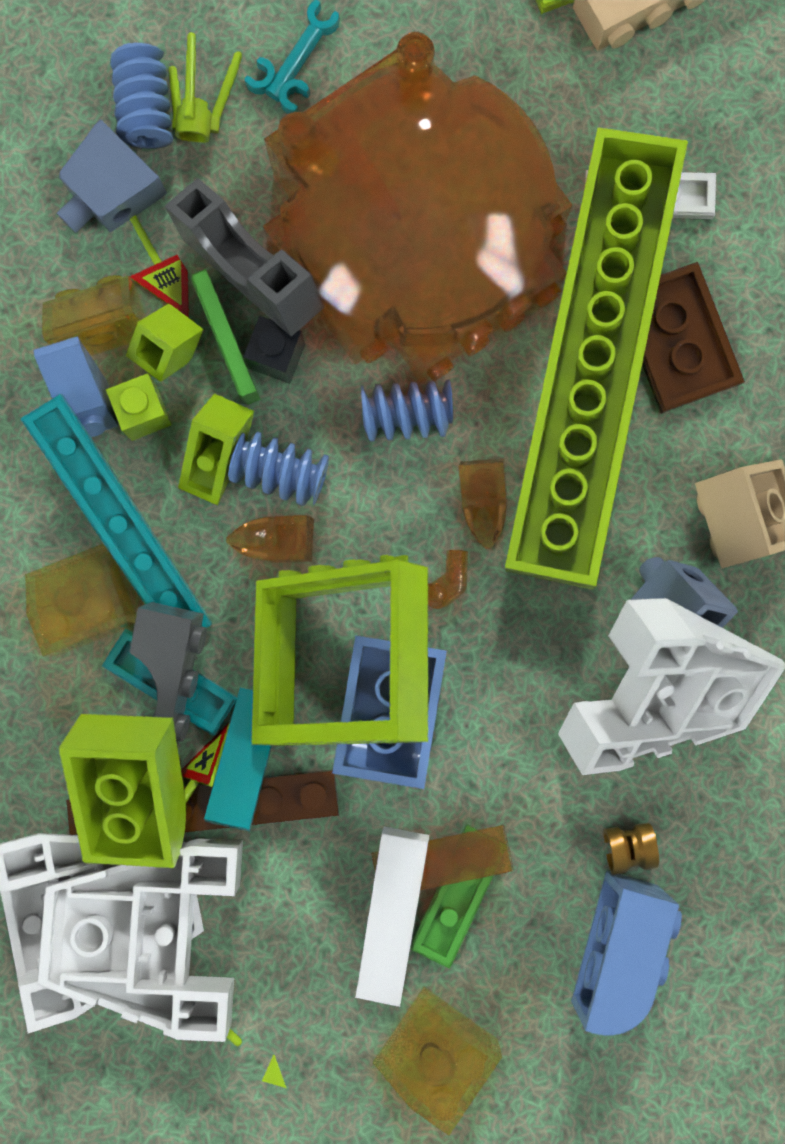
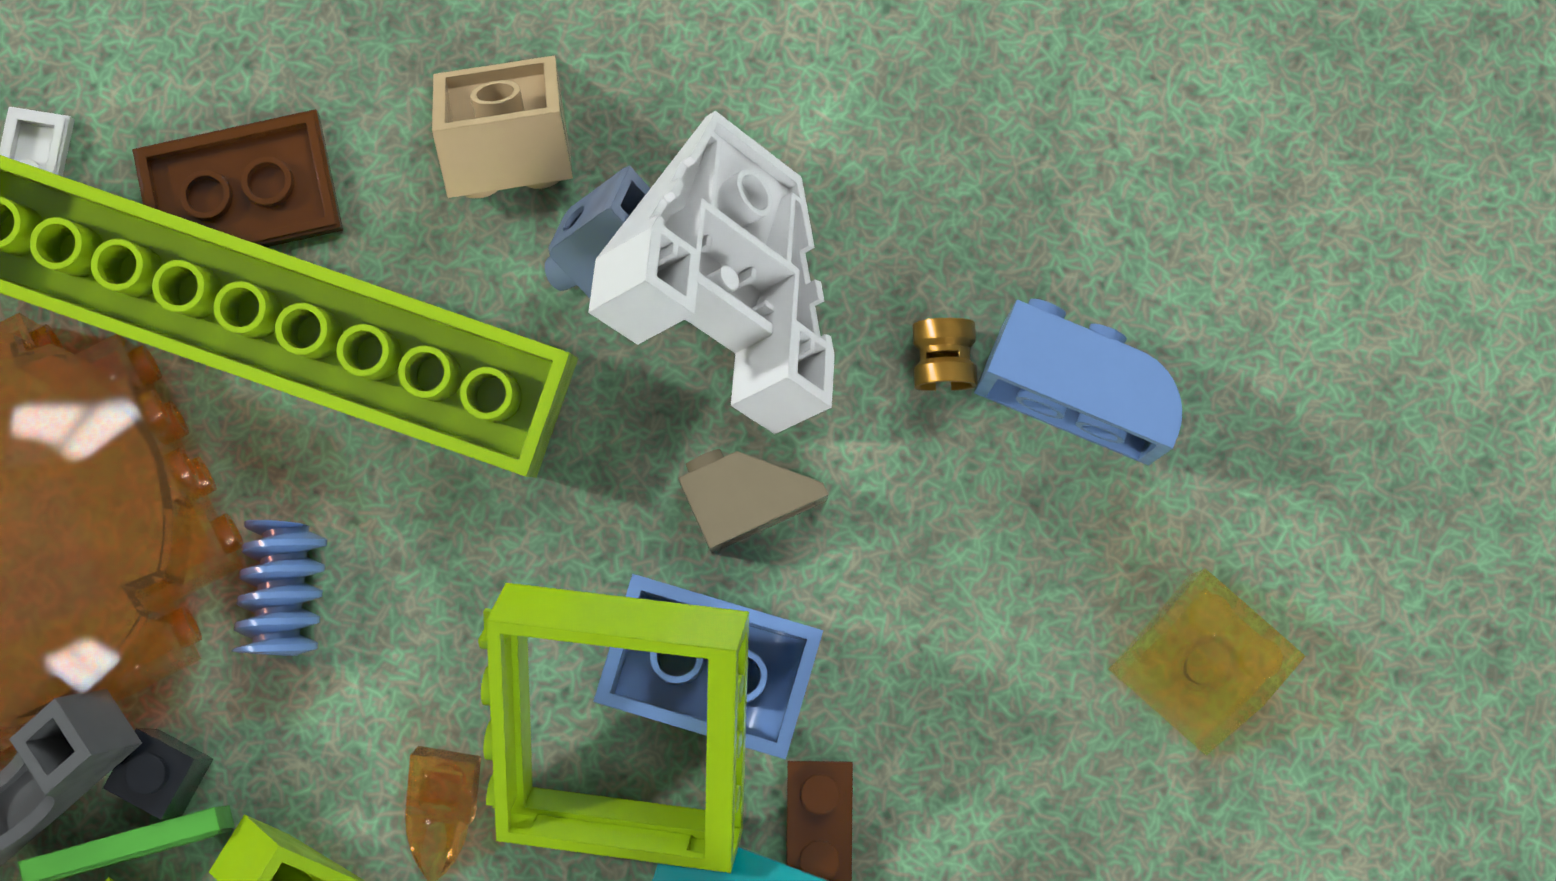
camera: 90 degrees left, 5 degrees down
(277, 469) = (336, 789): medium blue piece -> none
(392, 915) = (999, 699): white tile -> none
(449, 918) = (986, 604): bright green tile -> none
(452, 583) = (540, 553): clear orange arm -> none
(464, 857) = (932, 620): clear orange plate -> none
(484, 498) = (425, 494): clear orange plate -> none
(512, 718) = (744, 496): none -> dark tan slope

